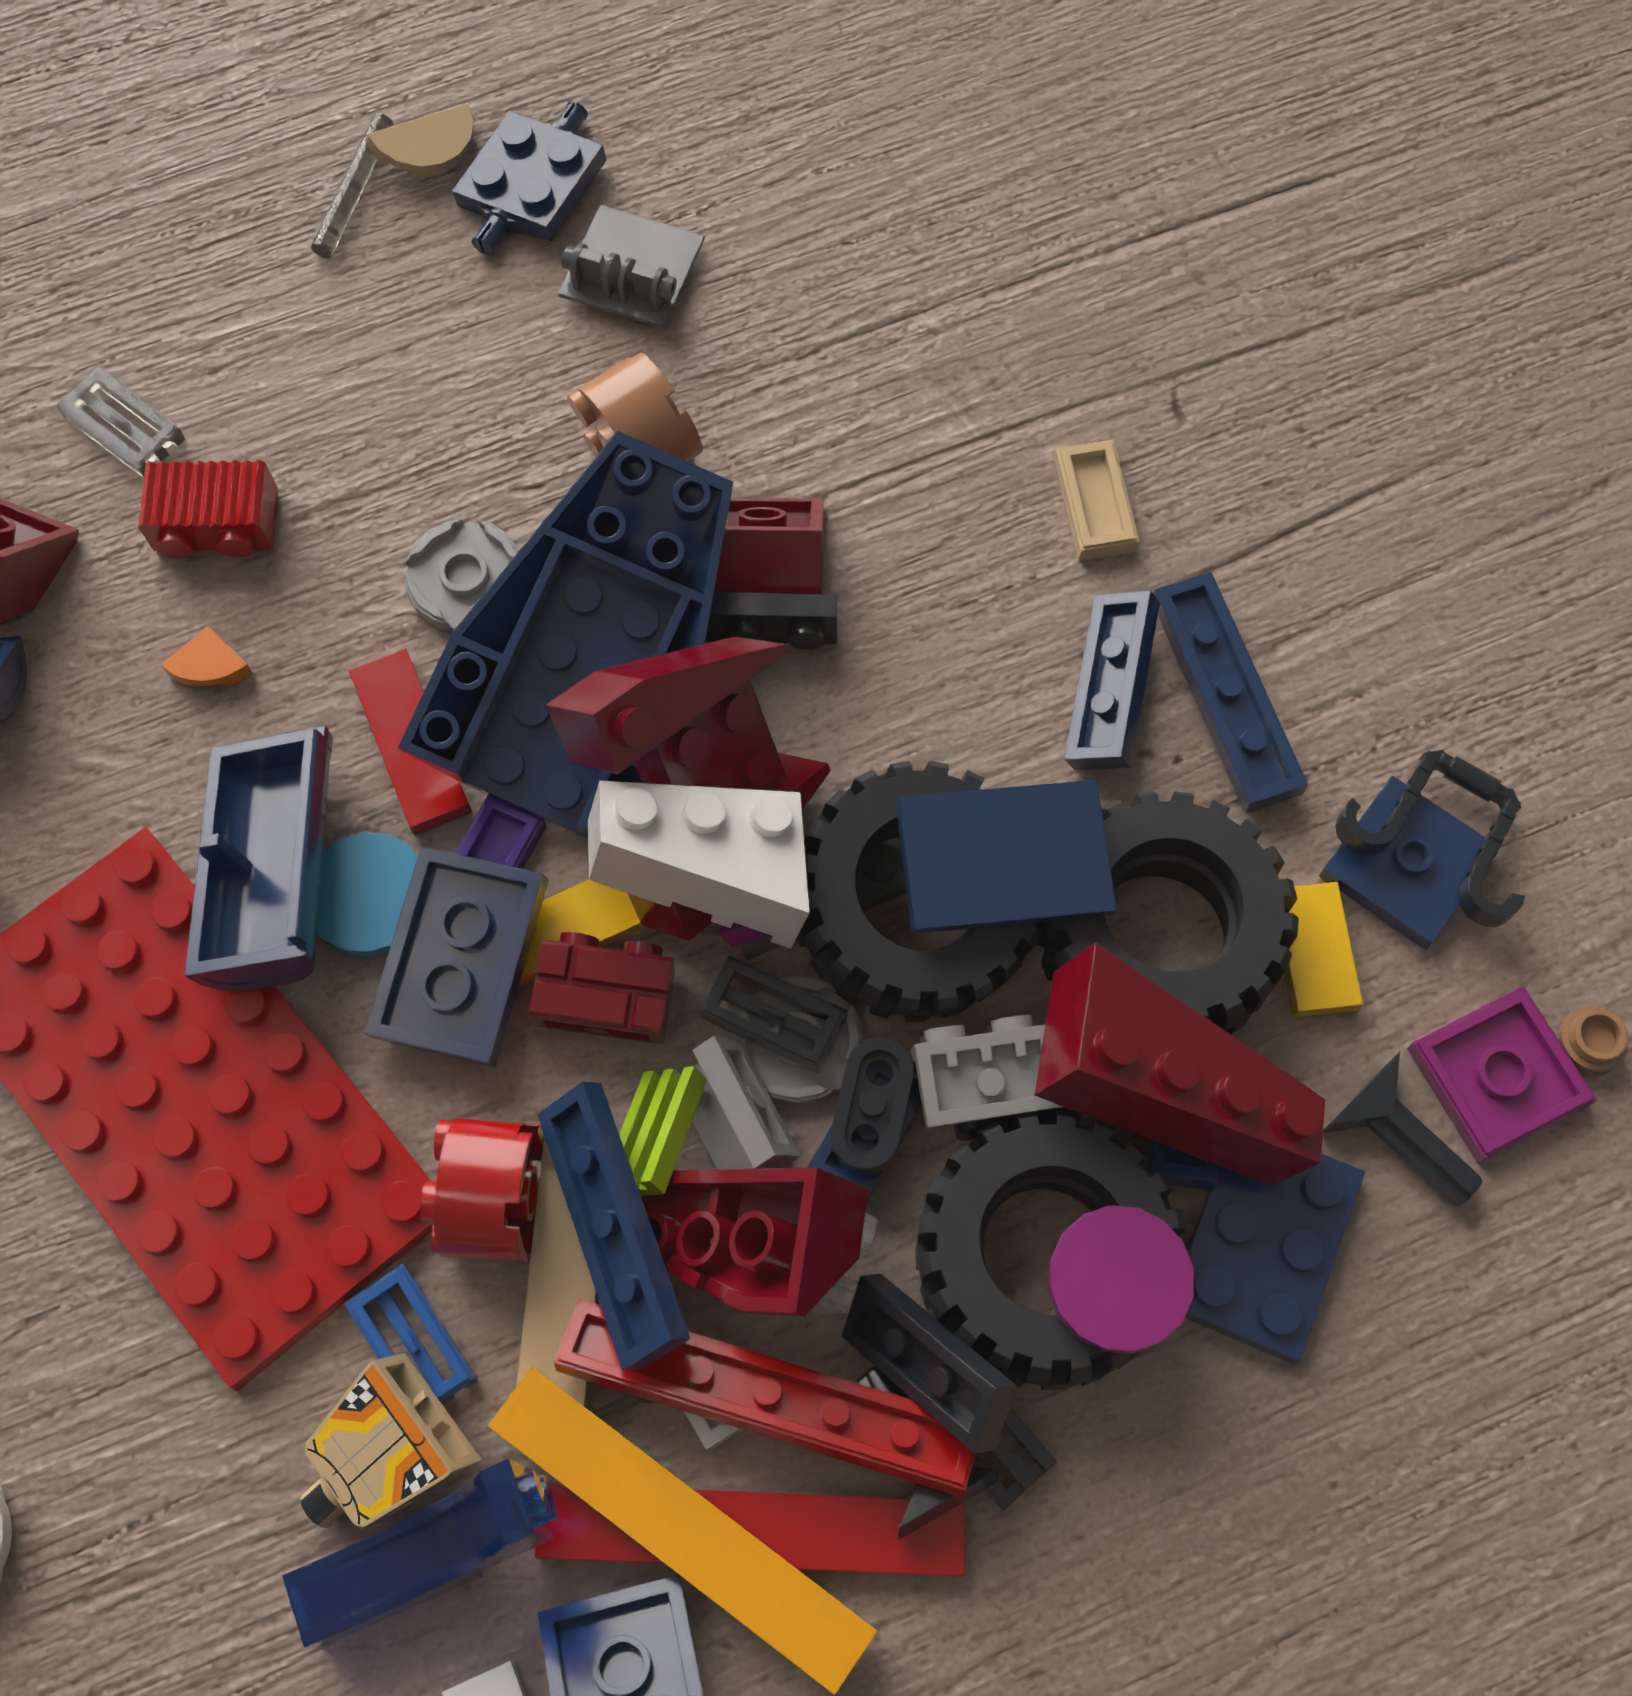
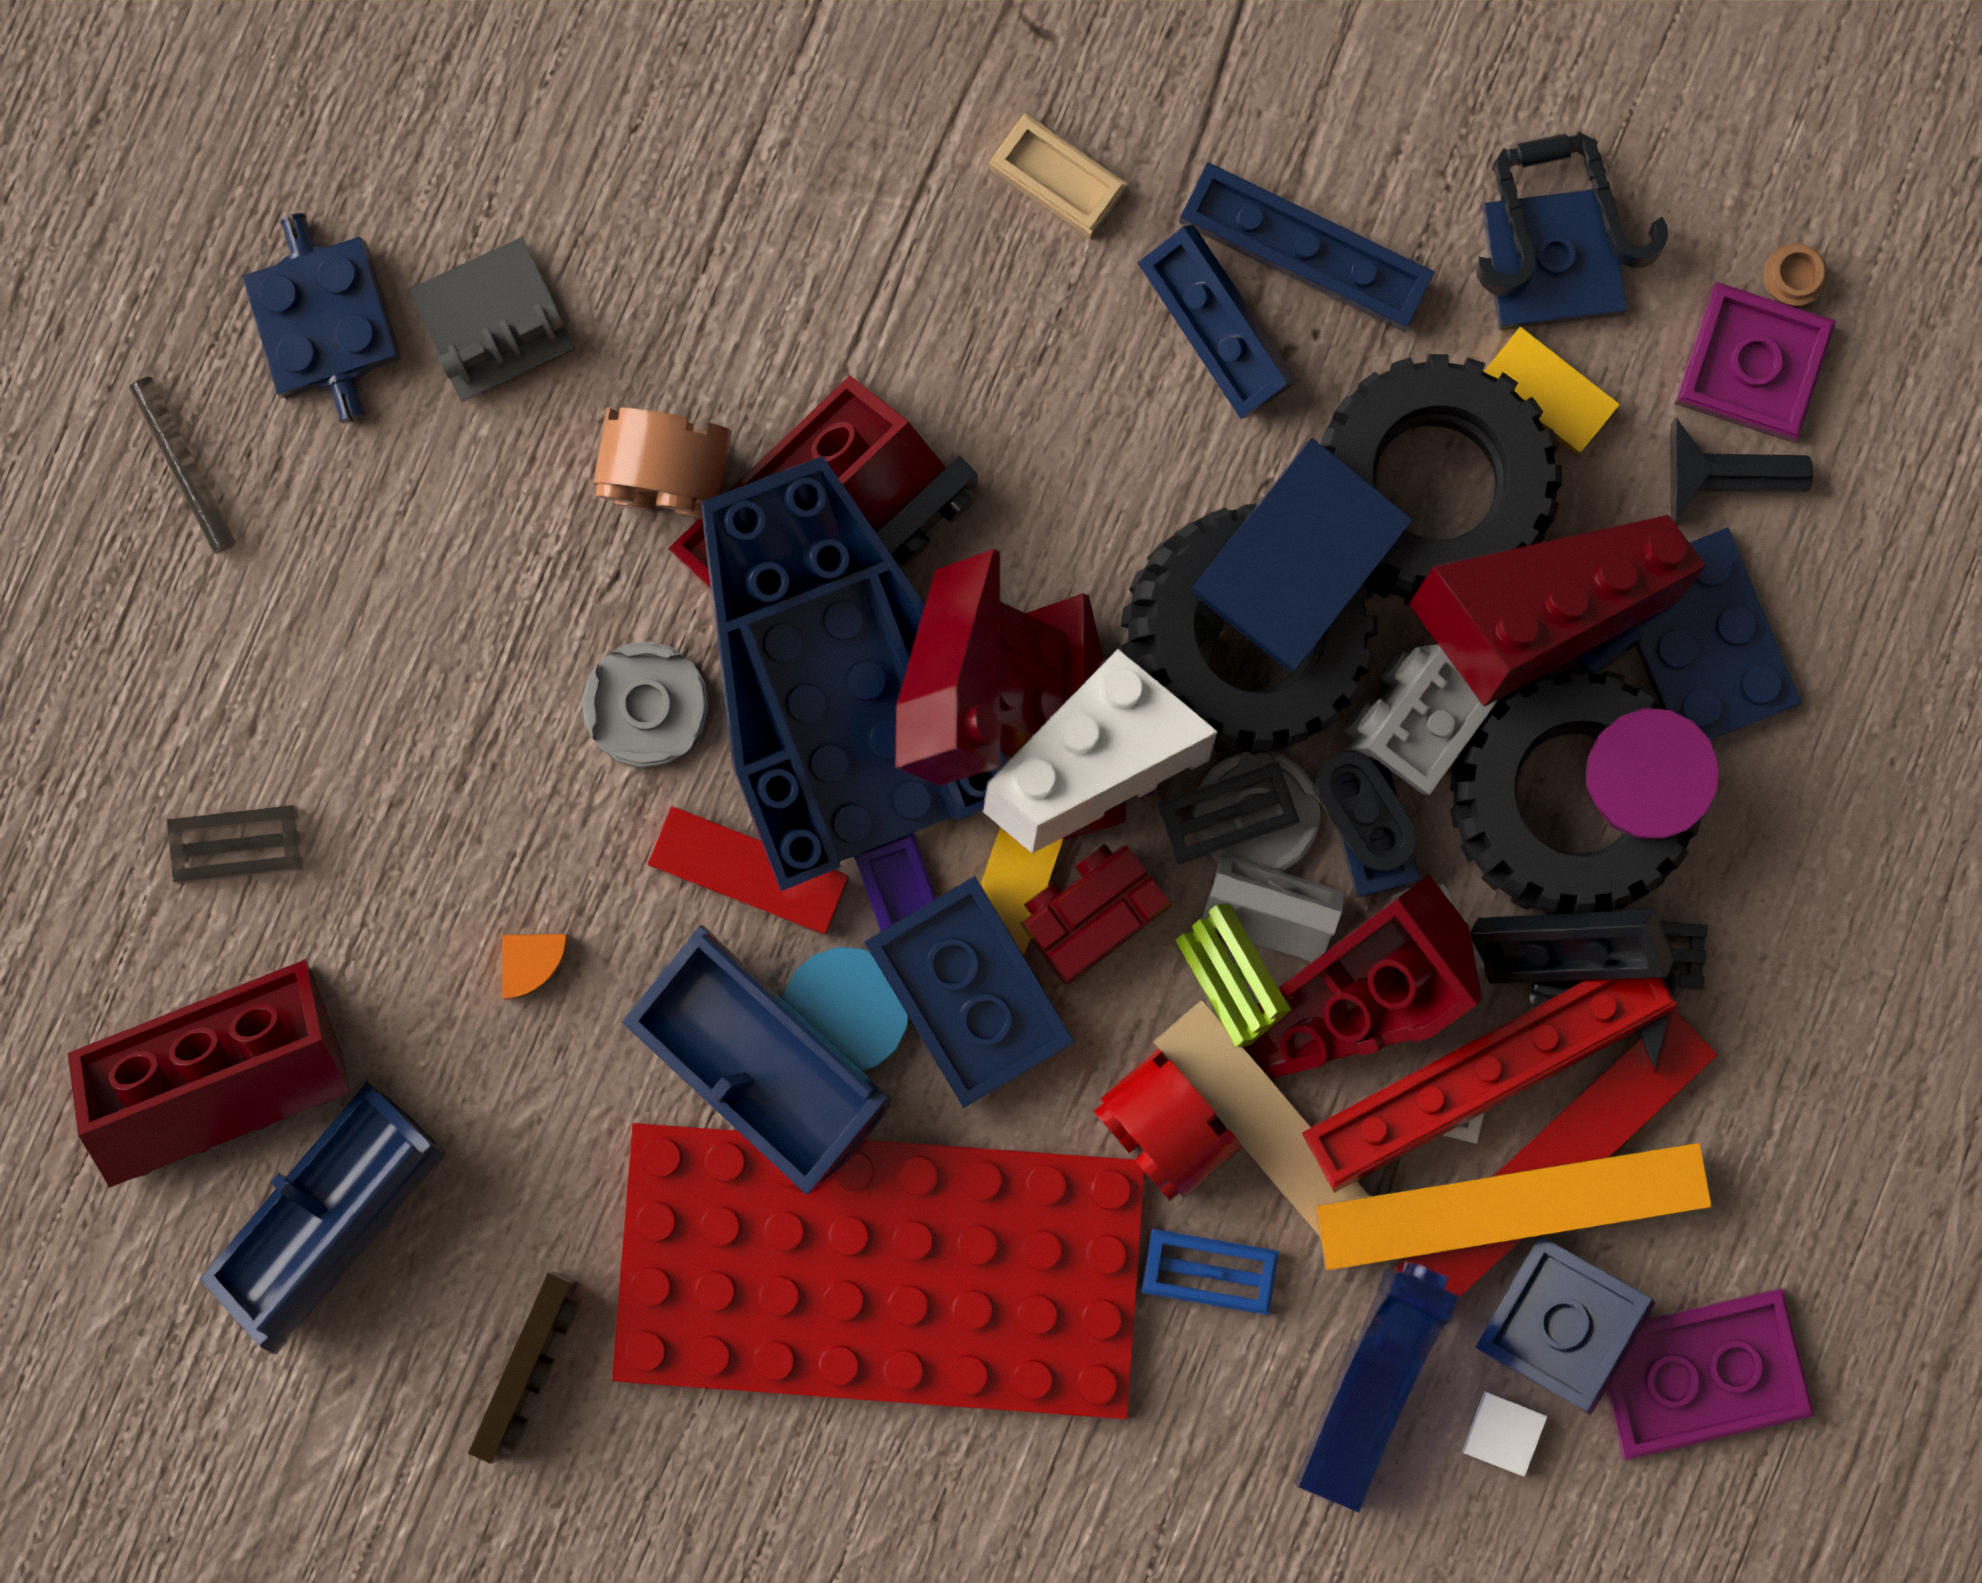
camera: 40 degrees left, 15 degrees up
(208, 507) = (397, 847): red brick -> none
(383, 1447) = (1277, 1351): torso -> none
(425, 144) = (208, 370): tan tile -> none
(613, 1227) = (1281, 1064): dark blue plate -> none

